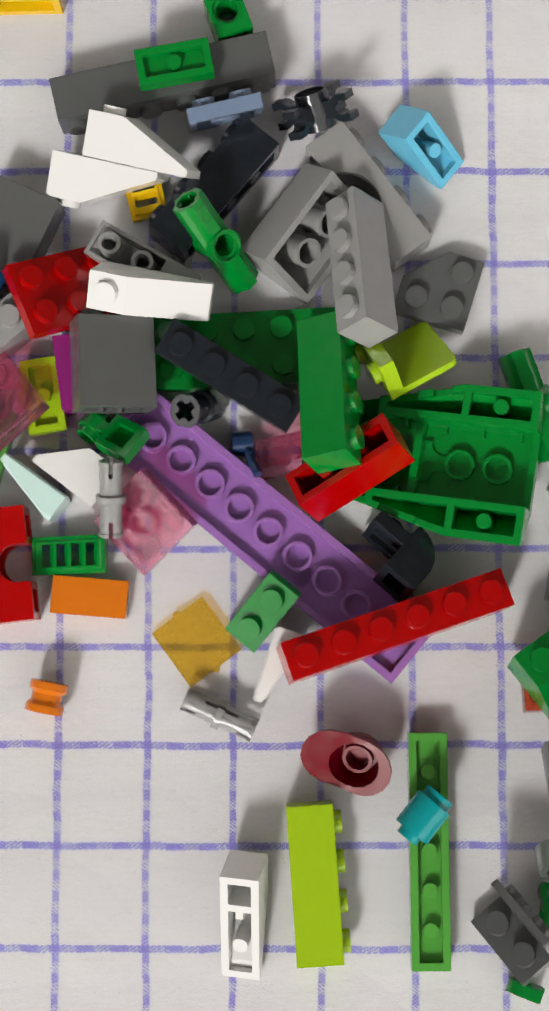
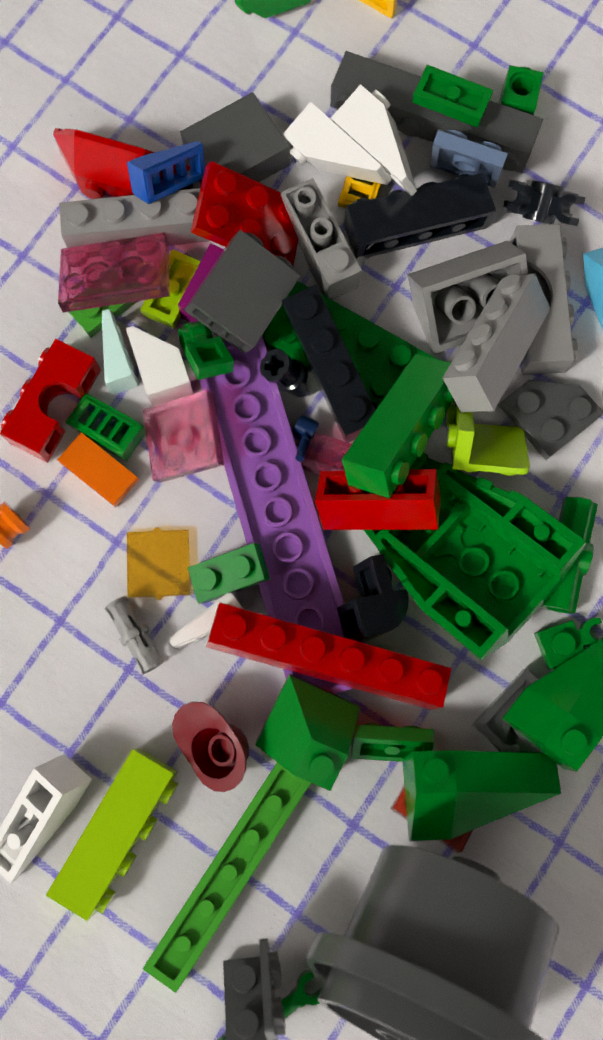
camera: 30 degrees right, 5 degrees down
(111, 498) = (166, 397): light grey pin -> none
(148, 293) = (308, 253): white slope -> none
(205, 228) = (391, 229): green piece -> none
(418, 695) = (309, 731): none -> green slope
(423, 815) = (243, 838): teal brick -> none
(489, 660) = (389, 742): none -> green plate

